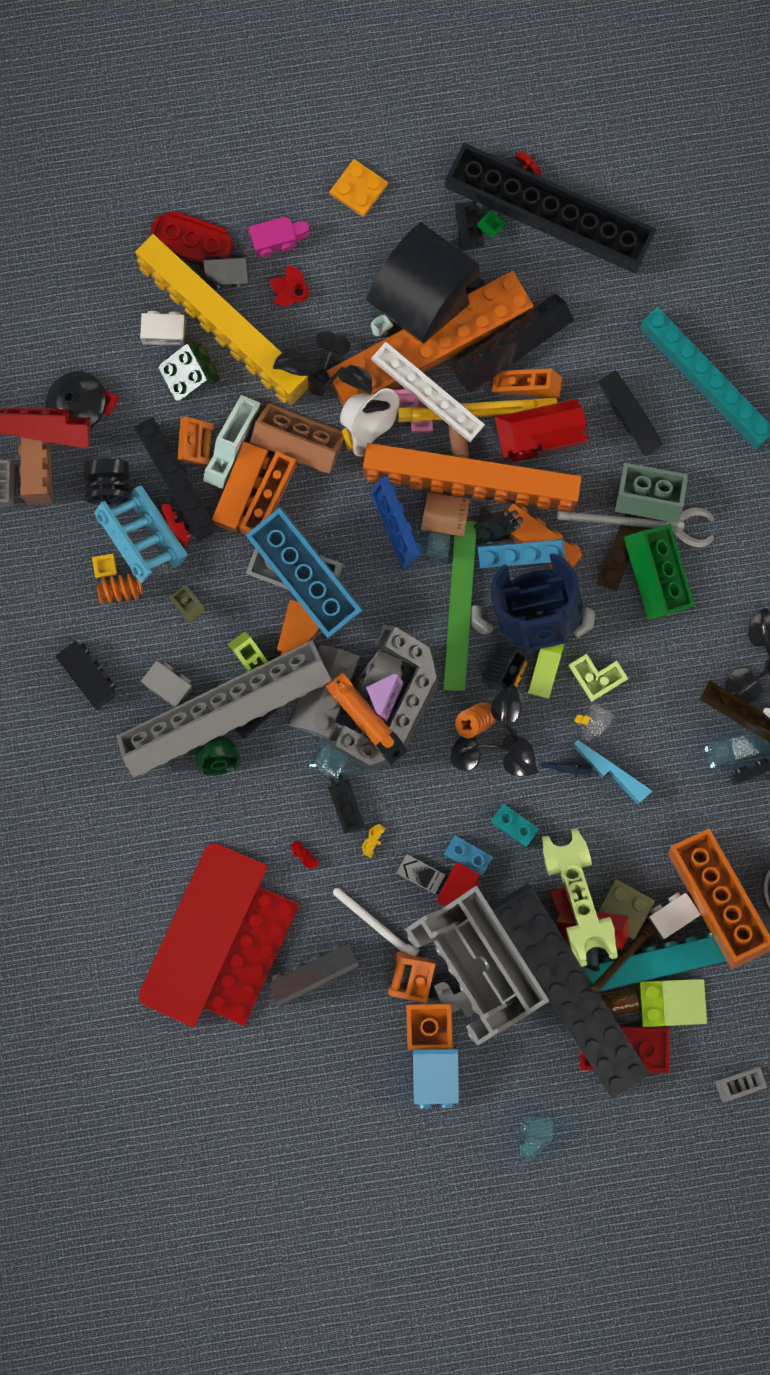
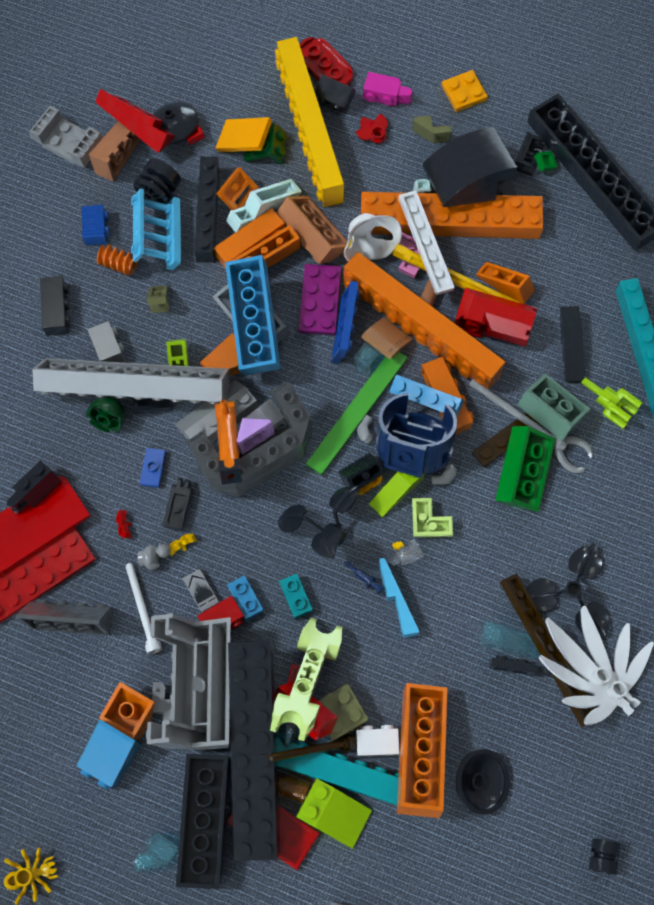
camera: 30 degrees right, 10 degrees down
(68, 563) = (94, 224): none -> blue brick
(104, 566) = (118, 239): yellow plate -> none
(161, 374) = (243, 134): none -> light orange tile
(163, 328) = (262, 105): white brick -> none
(179, 530) = (186, 240): red slope -> none
(194, 872) = (33, 487): none -> black brick
(295, 782) = (152, 467): none -> blue plate
(297, 364) = (353, 195): black plant -> none
(328, 761) = (184, 465): clear light blue slope -> none
(344, 256) = (423, 126): none -> olive slope
(351, 510) = (319, 299): none -> magenta plate
(351, 868) = (150, 555): none -> light grey animal
(419, 977) = (146, 668): orange plate -> none
(431, 1226) = (26, 876): none -> yellow animal
(474, 720) = (313, 497): orange piece -> none
(498, 525) = (420, 365): black hinge -> none
(513, 342) = (512, 247): black brick -> none
(528, 163) = (596, 130): red piece -> none
(560, 1081) = (203, 821): none -> black brick
(704, 452) = (613, 402): none -> lime plant

